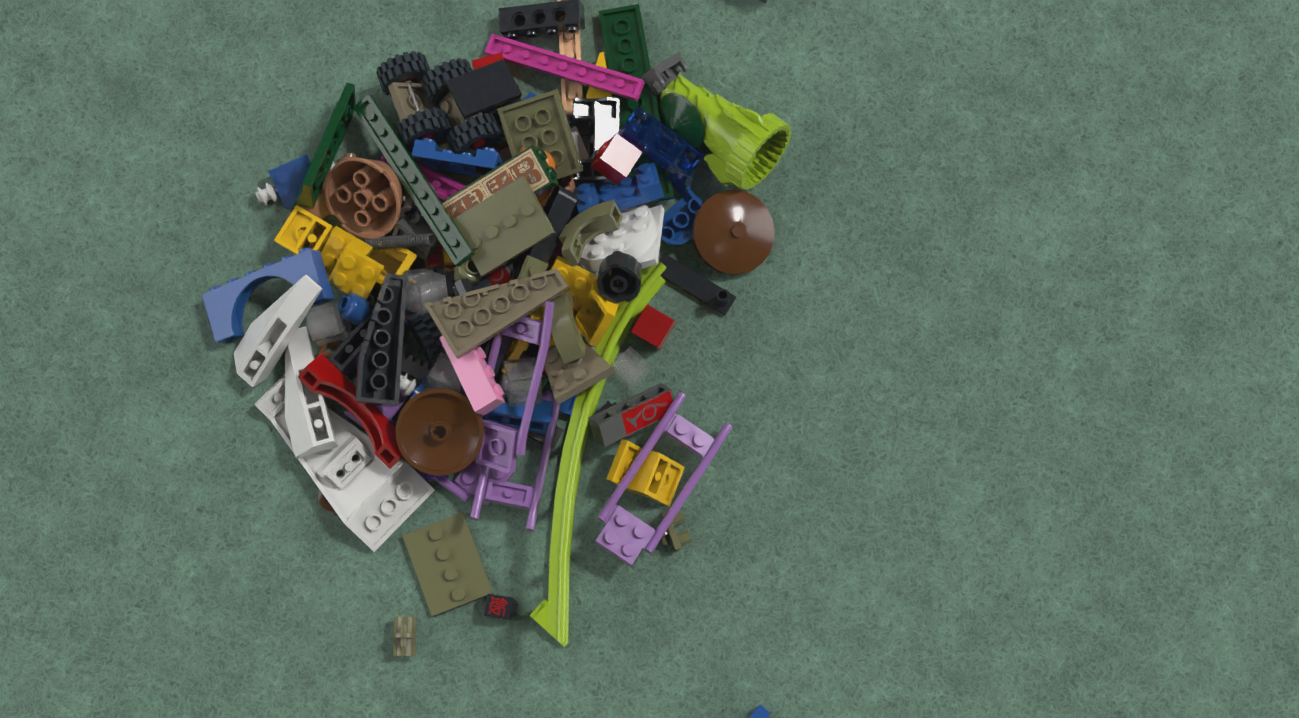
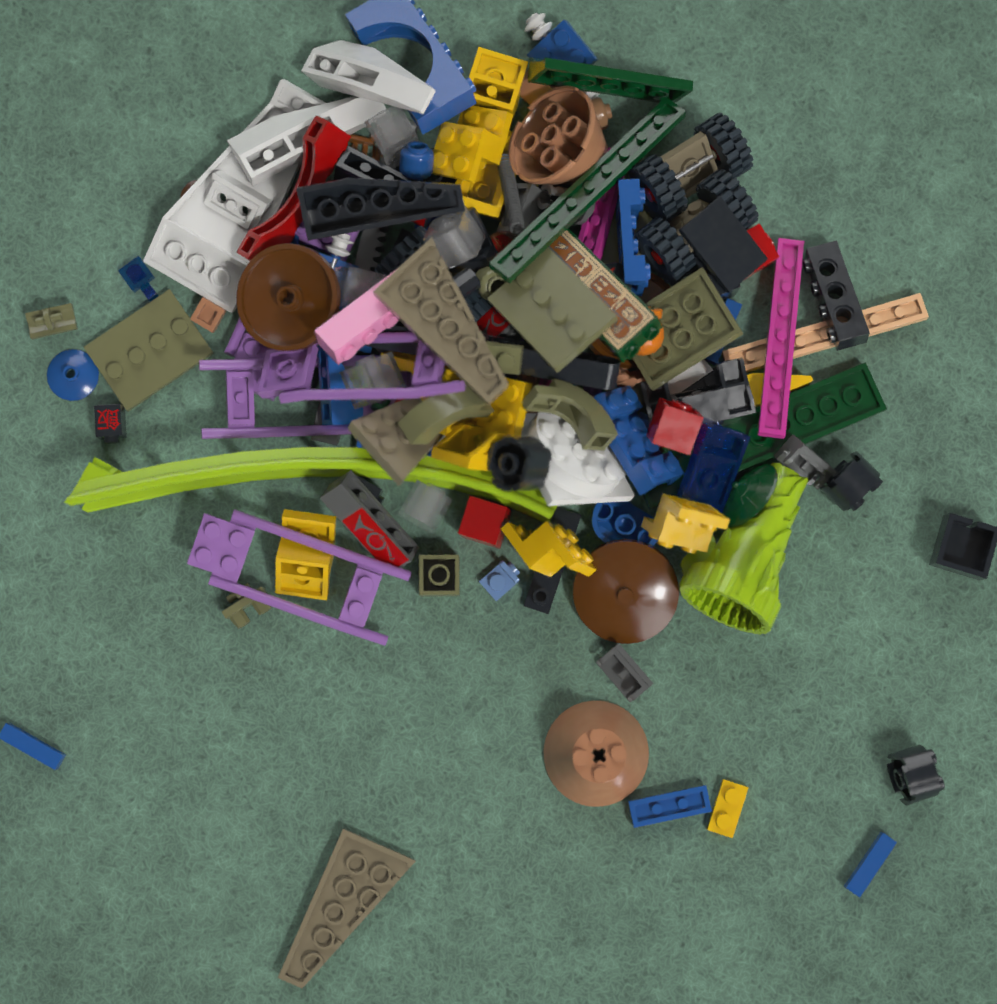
camera: 75 degrees right, 5 degrees up
(385, 559) = (138, 277): none -> clear blue plate
(431, 508) = (208, 314): none -> nougat plate
(463, 631) = (81, 384): none -> blue dish
(687, 279) = (549, 548): none -> yellow bracket
(687, 372) = (439, 575): none -> olive head
(690, 42) = (852, 482): none -> black brick
(693, 170) = (684, 524): none -> yellow bracket
(700, 327) = (500, 579): none -> medium blue bracket
(795, 249) = (624, 673): none -> dark grey hinge
(847, 301) = (570, 756): none -> nougat cone
(906, 240) = (669, 806): none -> blue plate
(917, 197) = (727, 808): none -> yellow plate
(918, 501) = (350, 888): none -> dark tan wing
(922, 51) = (915, 774): none -> black brick
(983, 101) = (870, 864): none -> blue piece

